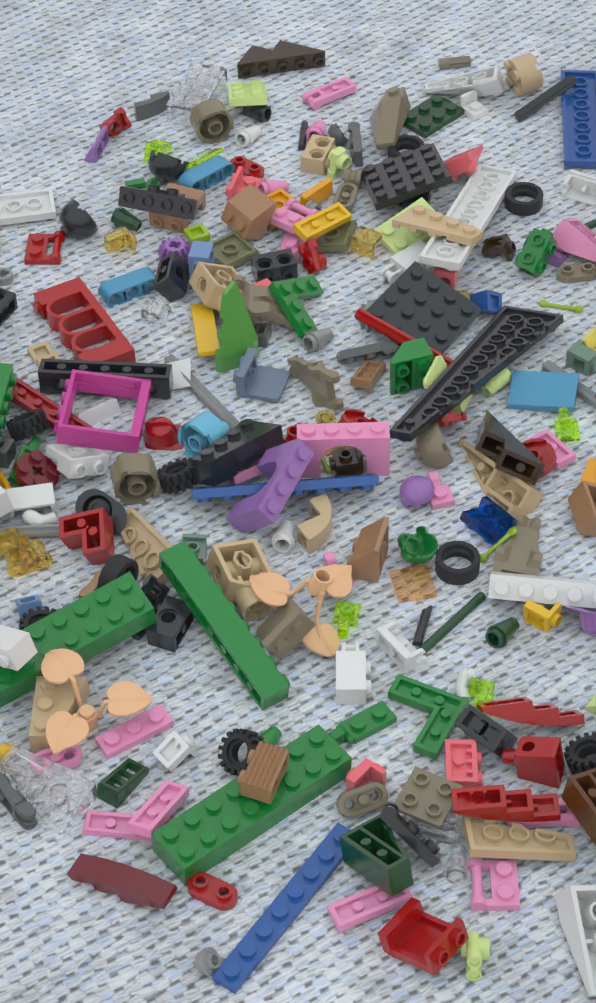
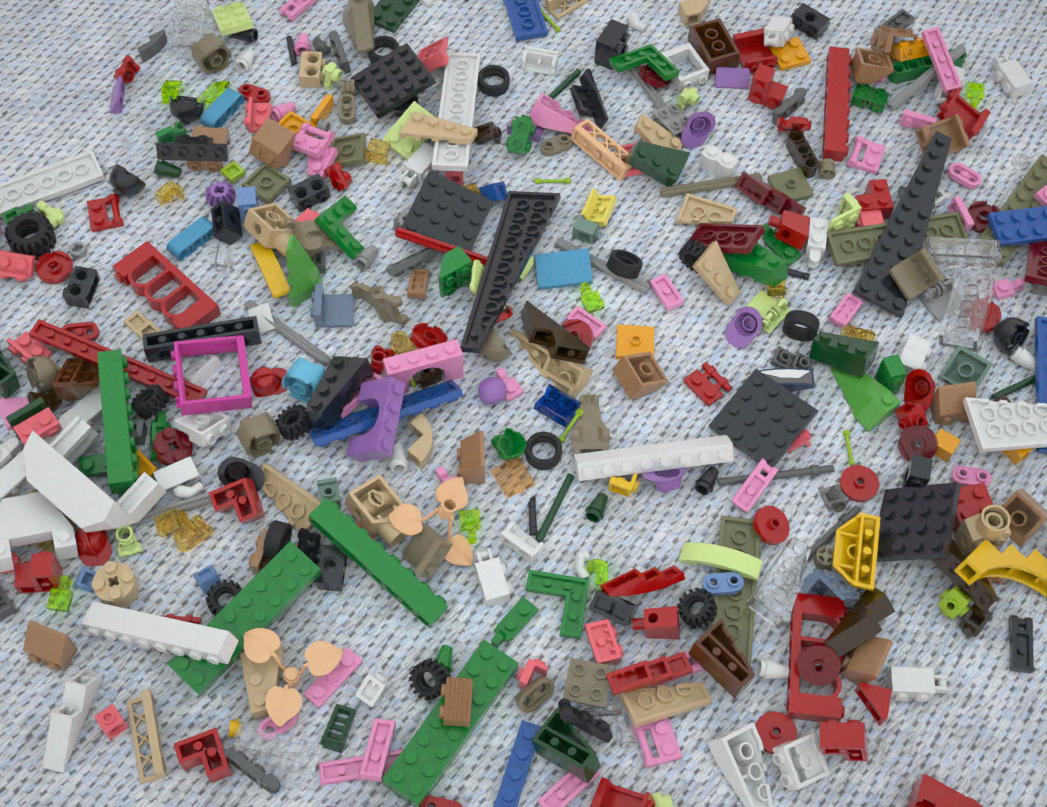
camera: 20 degrees left, 15 degrees up
(322, 222) = (338, 142): yellow plate -> none

